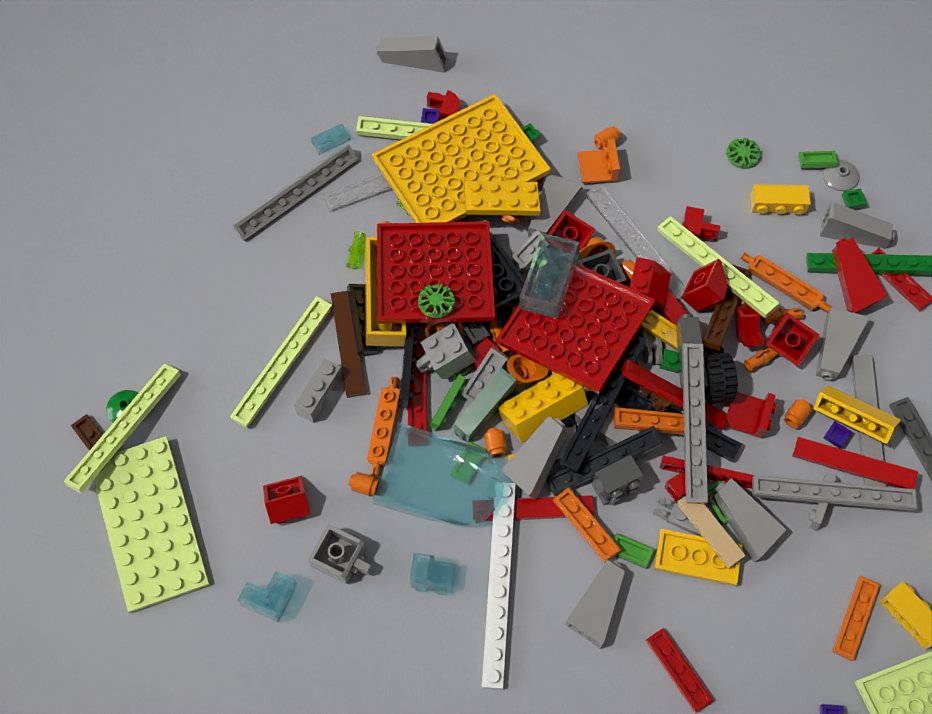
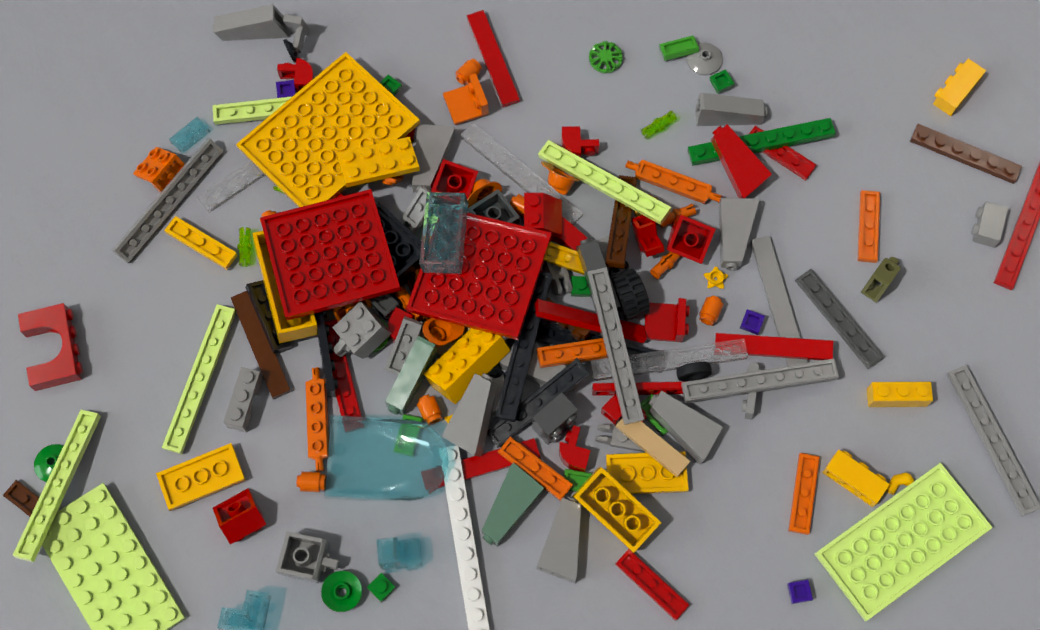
camera: 15 degrees left, 5 degrees up
(161, 320) = (65, 366): none -> red arch
(259, 453) = (200, 477): none -> yellow plate
(295, 161) = (159, 168): none -> orange bracket
(316, 237) = (201, 242): none -> yellow plate
(364, 587) = (336, 582): none -> green dish
(406, 603) = (381, 587): none -> green plate
(436, 300) = (338, 284): bright green wheel -> none
(448, 402) = (374, 381): bright green plate -> none
(455, 63) = (298, 26): none -> light grey piece
(555, 553) = (511, 504): none -> sand green slope
(626, 521) = (572, 455): none -> red brick
(633, 131) = (493, 58): none -> red tile
(660, 584) = (616, 509): none -> yellow brick
(672, 255) = (559, 179): none -> orange piece
(706, 286) = (597, 205): red slope -> none
(753, 451) = (674, 358): none -> clear plate
(768, 467) = (694, 371): none -> black tyre
(780, 199) = (650, 97): yellow brick -> none
(782, 226) = (658, 124): none -> clear neon green pin
(813, 384) = (720, 278): none -> yellow plate
(857, 414) = (765, 298): yellow brick -> none

